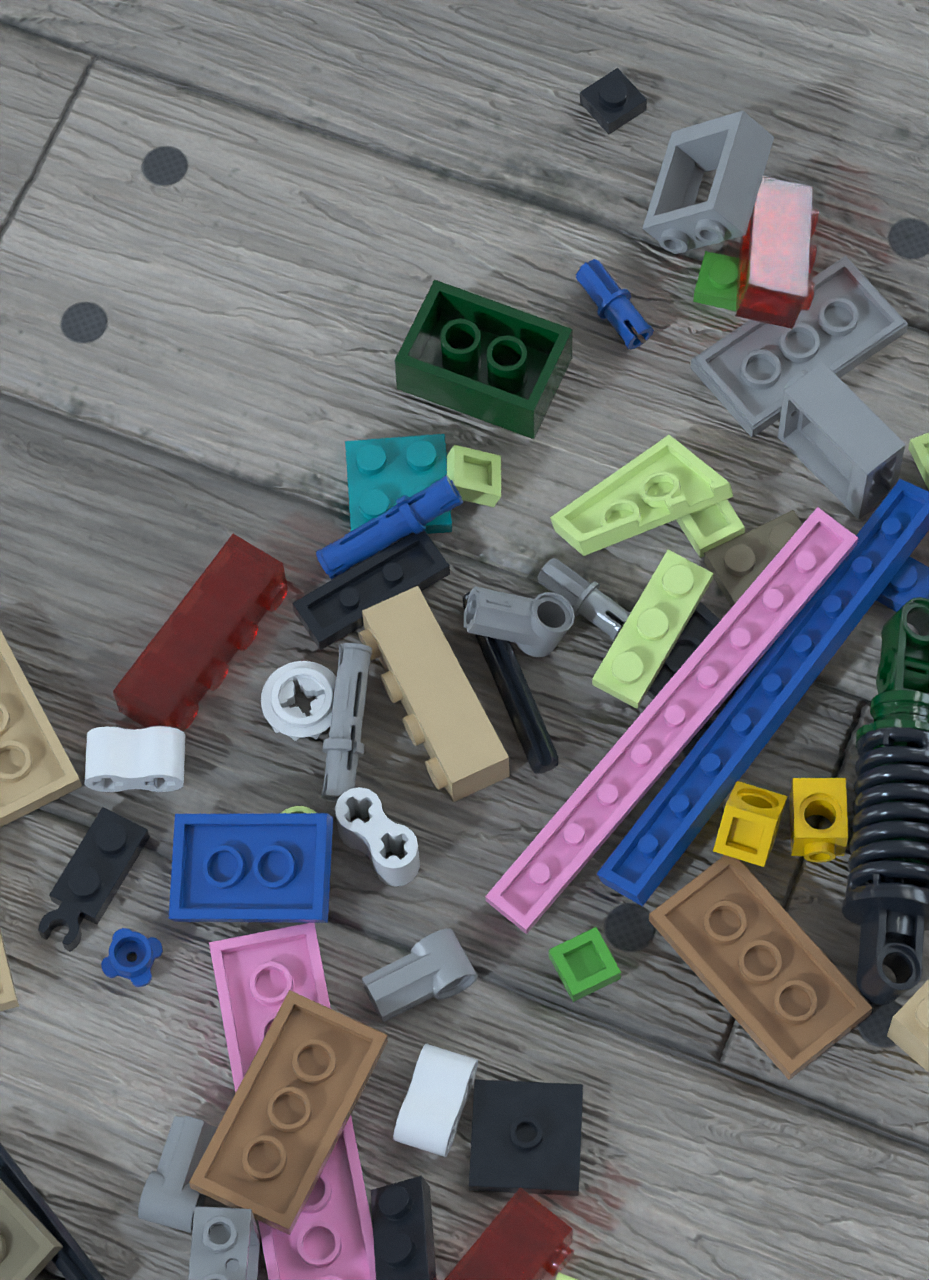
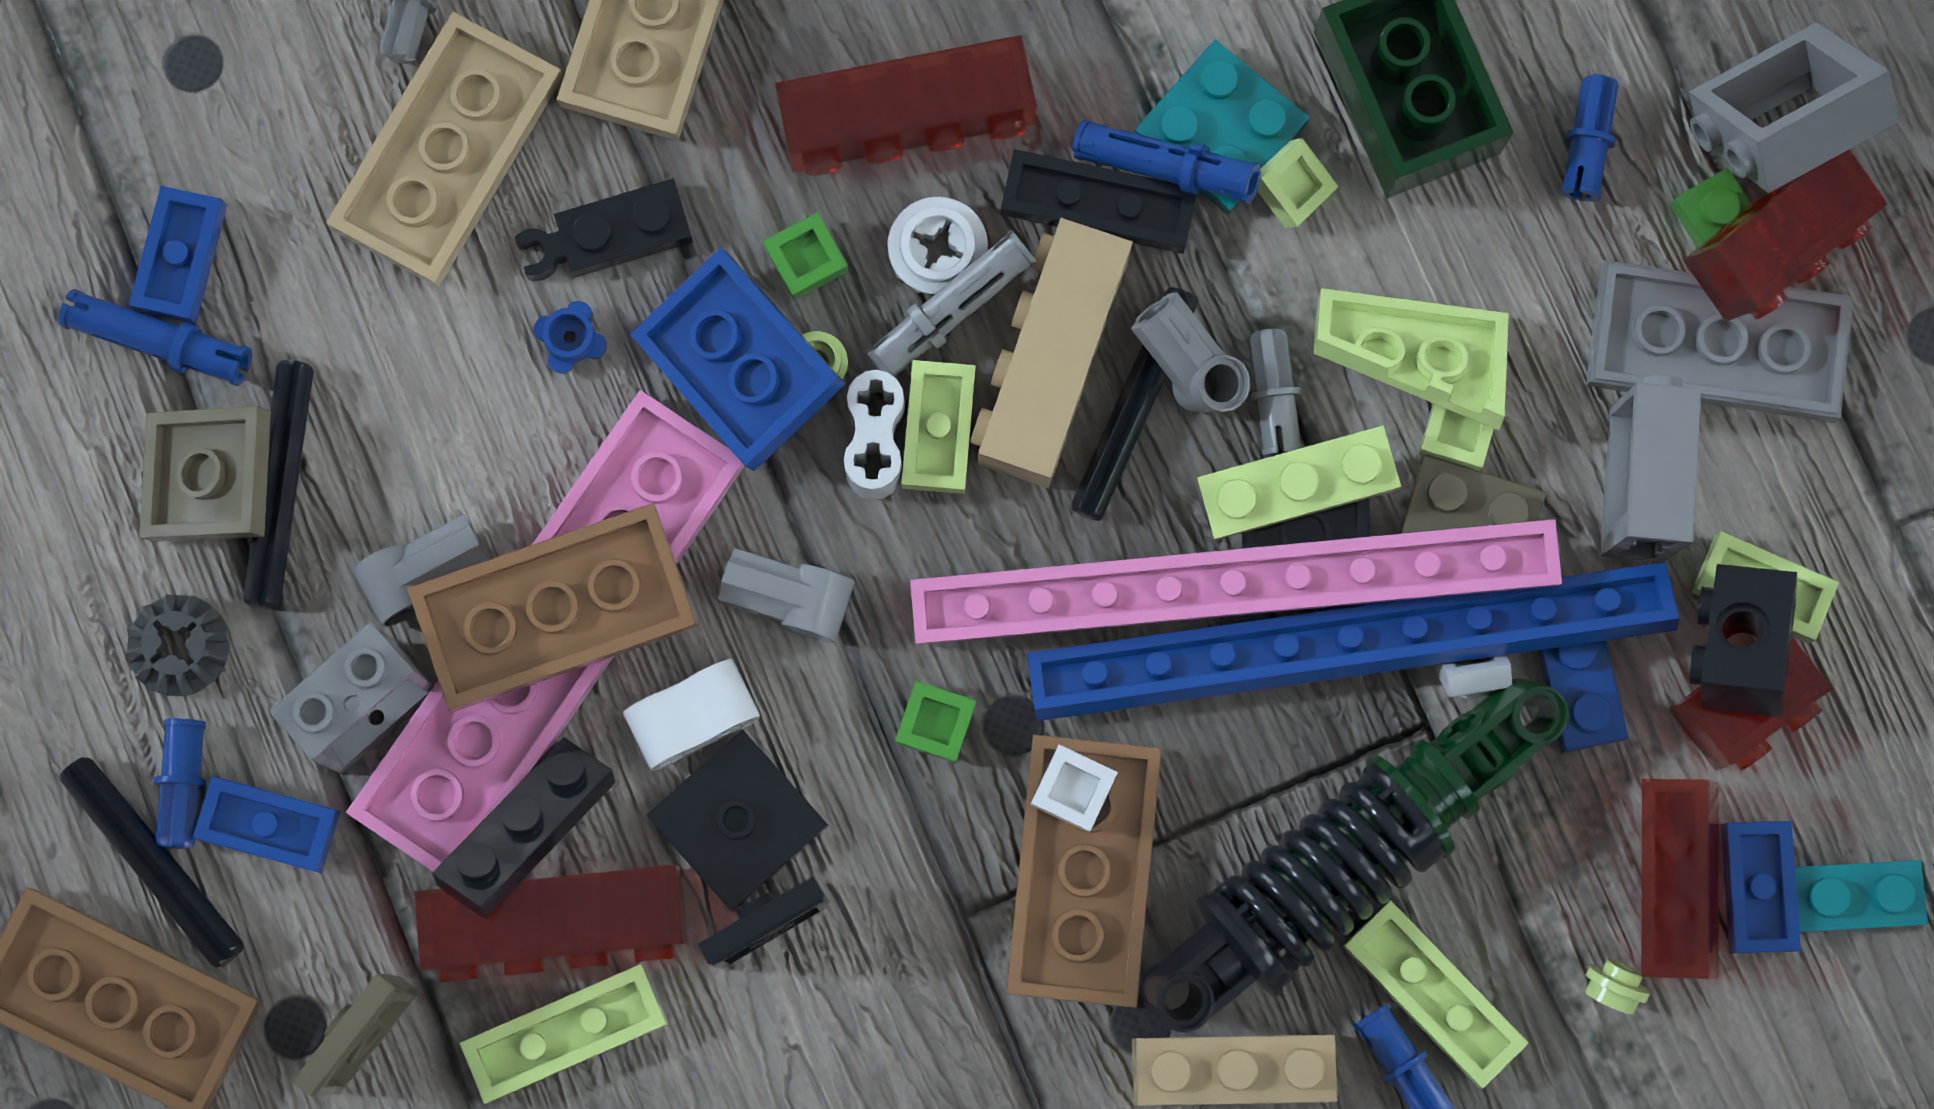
camera: 40 degrees right, 15 degrees up
(135, 759) = (741, 161): white axle -> none
(229, 777) = (805, 256): none -> bright green plate
(410, 797) = (938, 427): none -> yellowish green plate
(607, 1168) = (762, 922): none -> black plate
(707, 915) = (1073, 788): none -> white plate
(750, 823) = (1199, 743): yellow brick -> none
(823, 798) = (1290, 779): yellow brick -> none
(862, 642) = (1475, 677): none -> white plate

